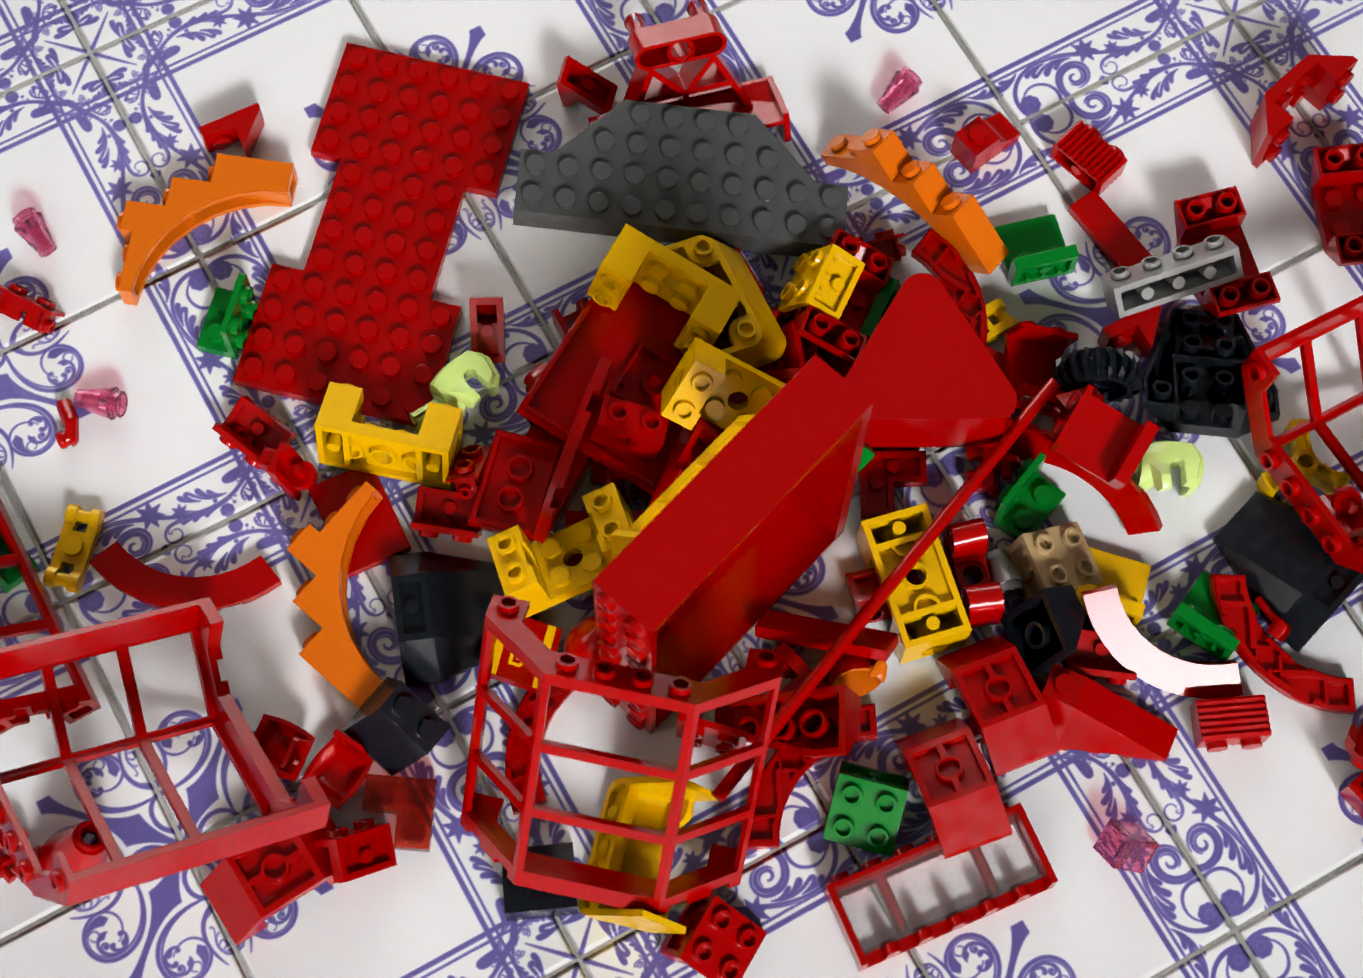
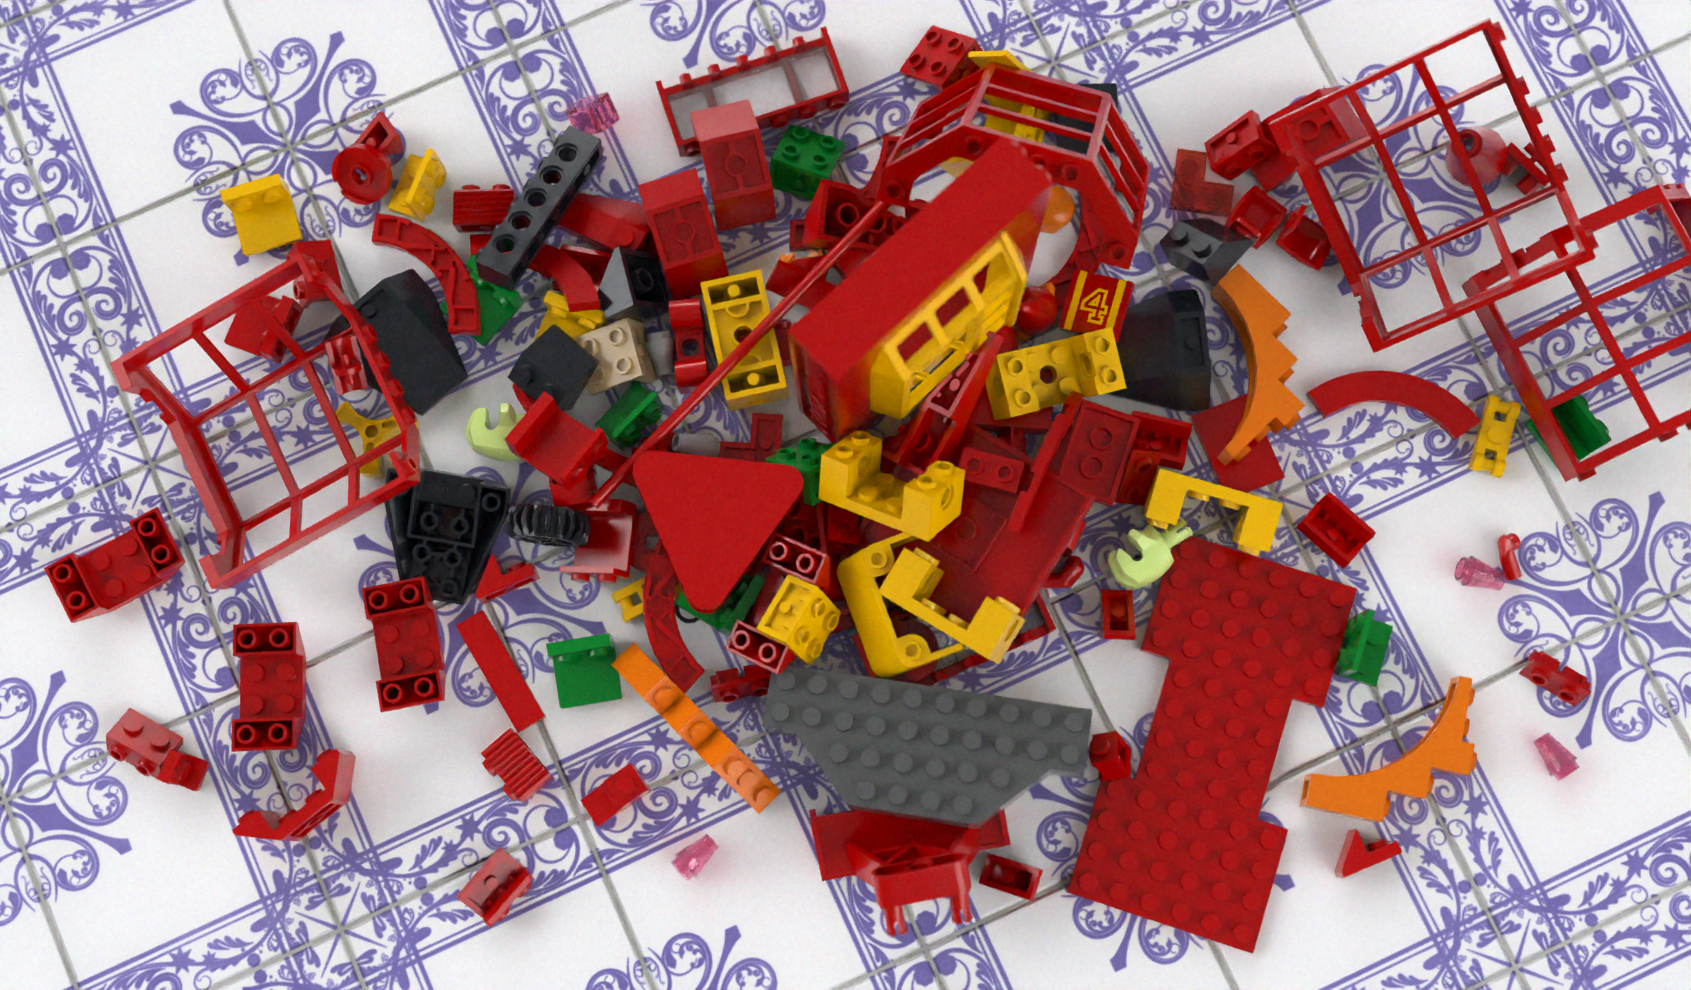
camera: 170 degrees left, 10 degrees up
(288, 470) = (1303, 484): red hips -> none
(498, 196) = (1105, 754): none -> red brick
(574, 777) = (1058, 211): none -> orange hair
(948, 474) = (696, 444): none -> light grey cone
(1088, 51) = (496, 887): none -> bracket
(1120, 535) = (554, 366): none -> black slope
(1125, 791) = (554, 200): none -> black brick
(1172, 275) = (460, 618): light grey brick -> none
(1278, 628) = (426, 284): red hand -> none
(1314, 744) = (418, 186): none -> yellow bracket

